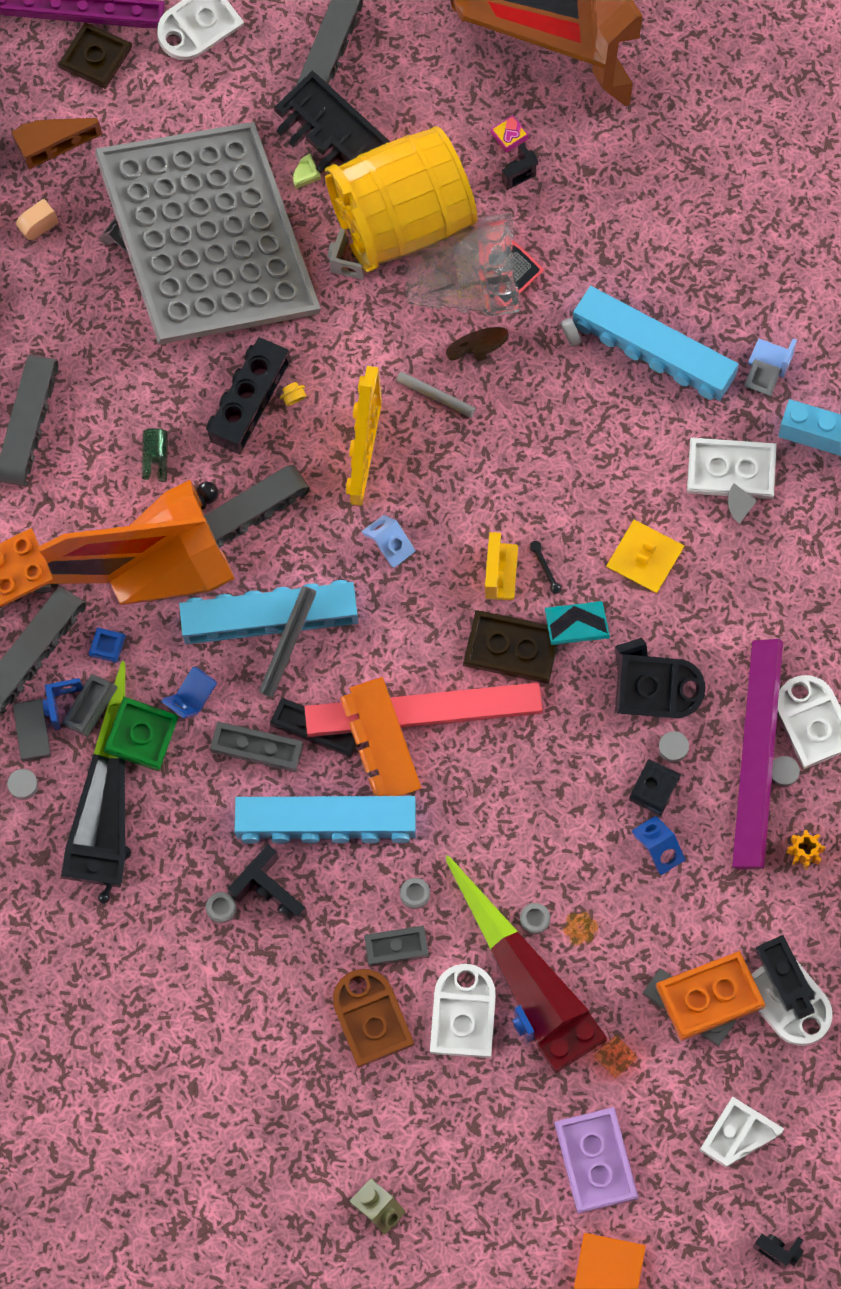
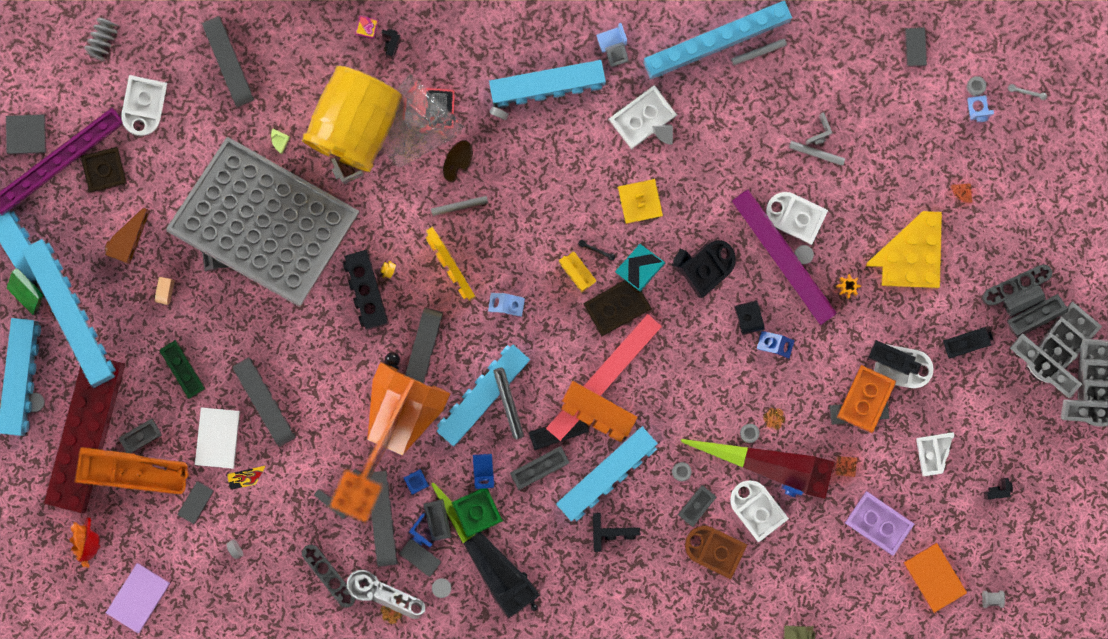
camera: 50 degrees left, 15 degrees up
(154, 451) = (345, 360): clear green hinge -> none
(221, 907) = (595, 561): light grey tile -> none
(327, 122) = (273, 103): black hinge -> none
(673, 746) = (740, 288): light grey tile -> none

